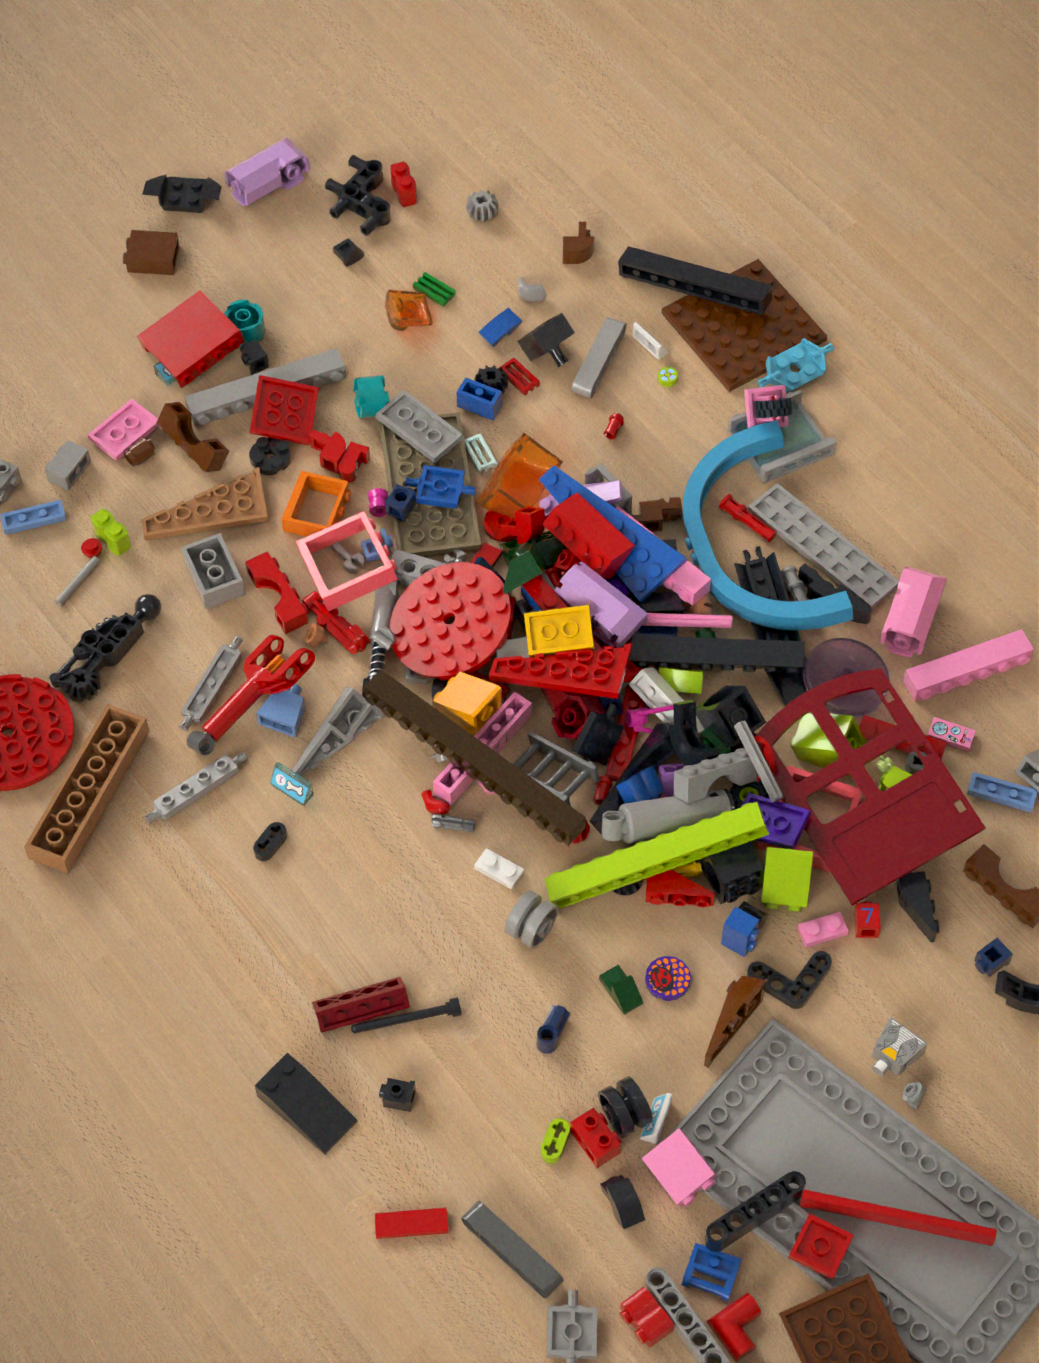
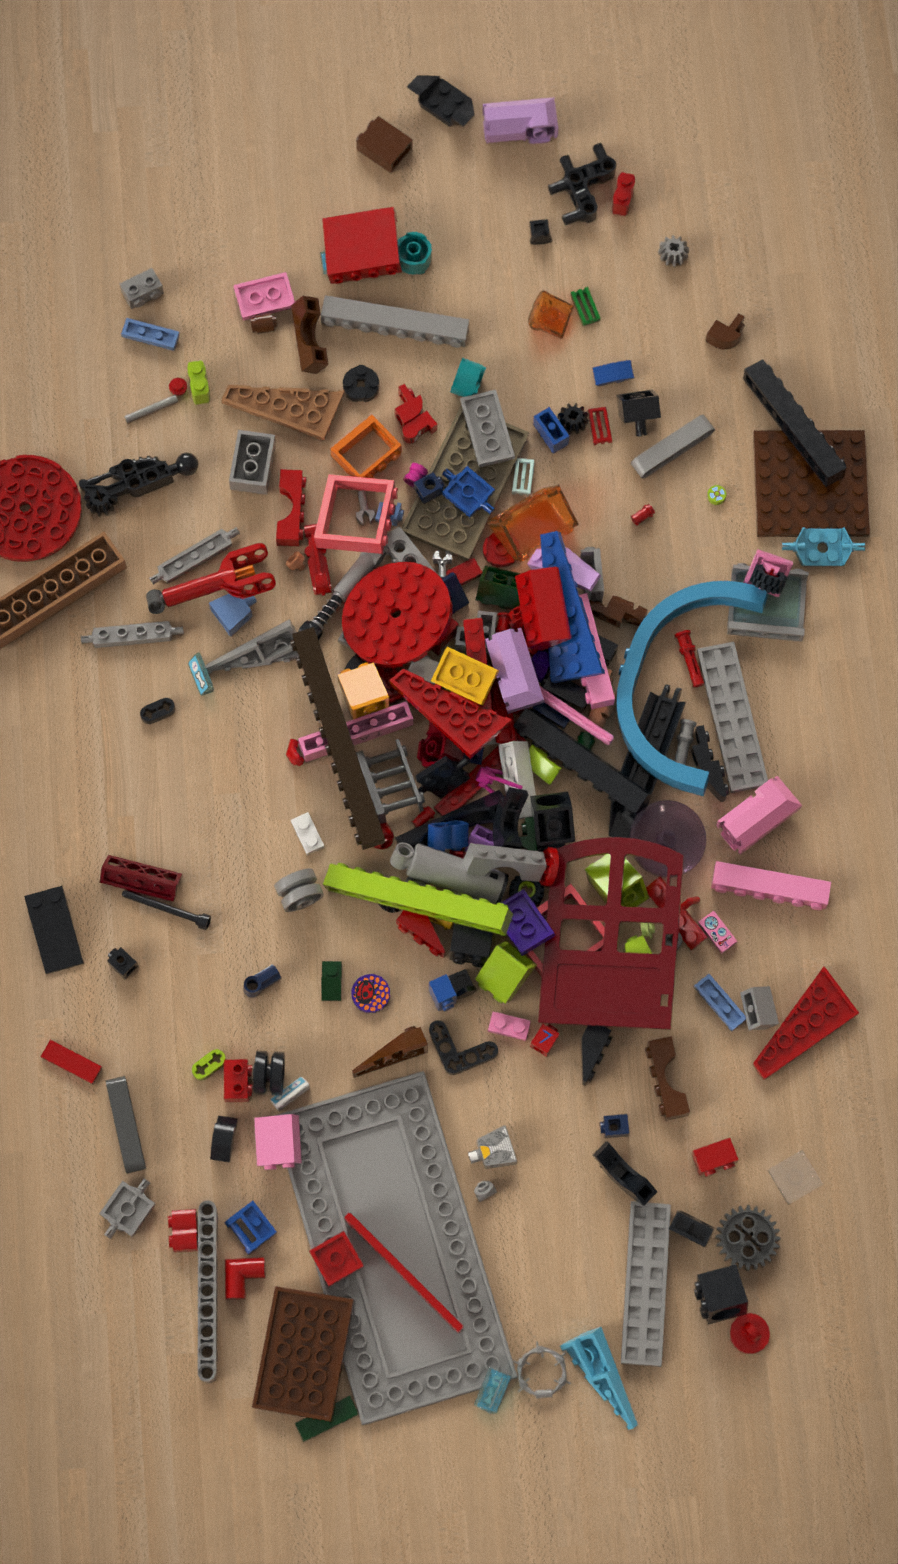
camera: 30 degrees right, 15 degrees up
(67, 465) = (202, 303): light grey brick -> none
(254, 357) = (402, 288): black brick -> none
(283, 410) = (393, 352): red plate -> none
(384, 637) = (339, 597): light grey plate -> none
(453, 823) = (298, 777): dark grey axle -> none
(524, 566) = (476, 605): dark green slope -> none
(526, 524) = (508, 564): red brick -> none
(529, 292) = (658, 355): light grey hair -> none
(649, 341) = (724, 454): white slope -> none
(749, 1220) = (297, 1201): black beam -> none
(758, 761) = (542, 871): light grey axle -> none

